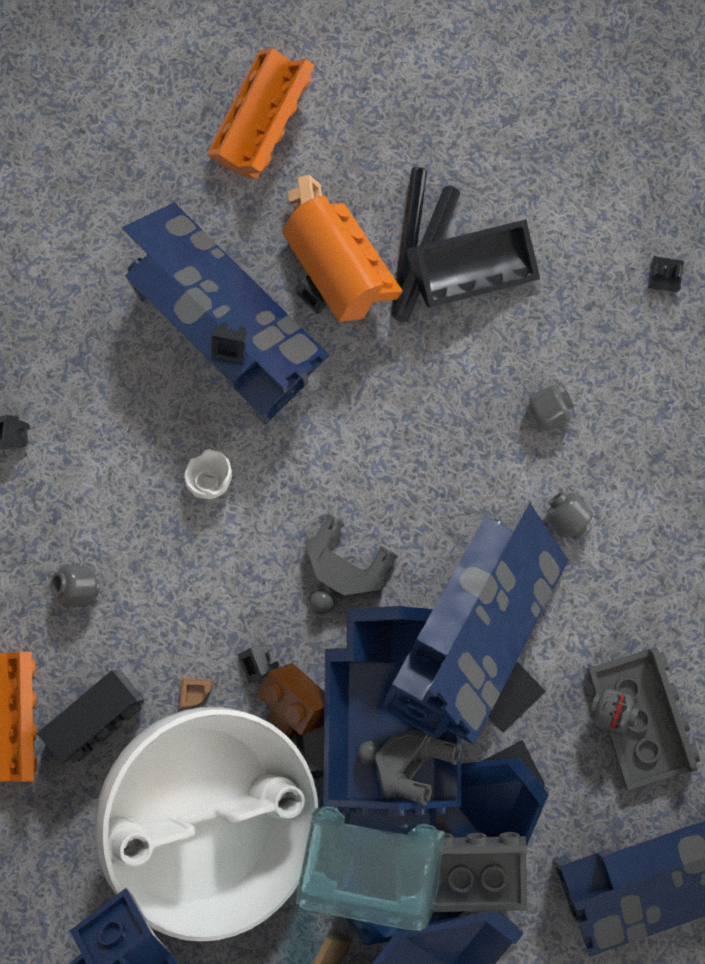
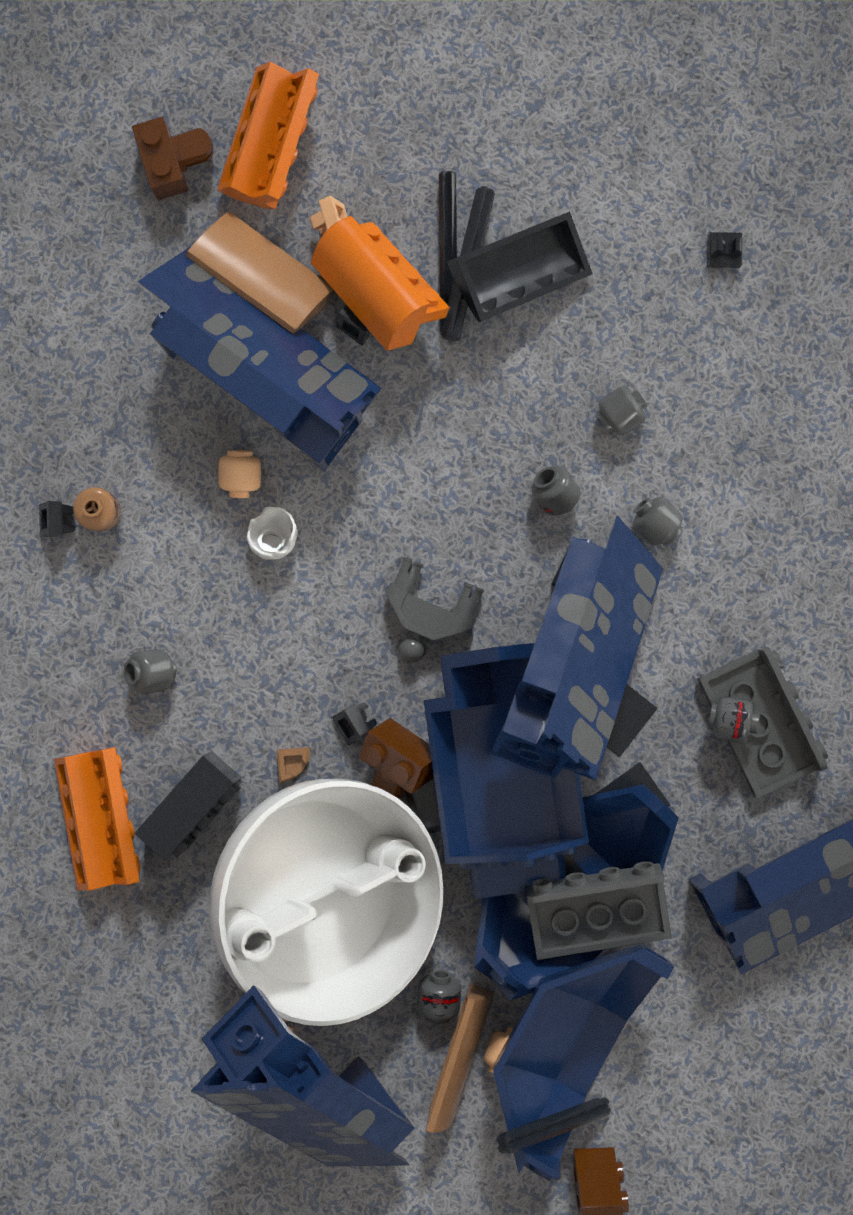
camera: 15 degrees left, 5 degrees up
(57, 436) = (106, 514): none -> medium nougat head
(167, 119) = (169, 156): none -> reddish brown brick
(186, 414) = (239, 473): none -> light nougat head
(229, 343) = (273, 391): black tile -> none
(234, 235) = (260, 272): none -> medium nougat slope
(299, 936) = (439, 997): none -> dark grey head
(370, 872) = (505, 927): clear light blue windscreen -> none
(402, 758) = (520, 805): dark grey connector -> none
(477, 472) = (555, 490): none -> dark grey head

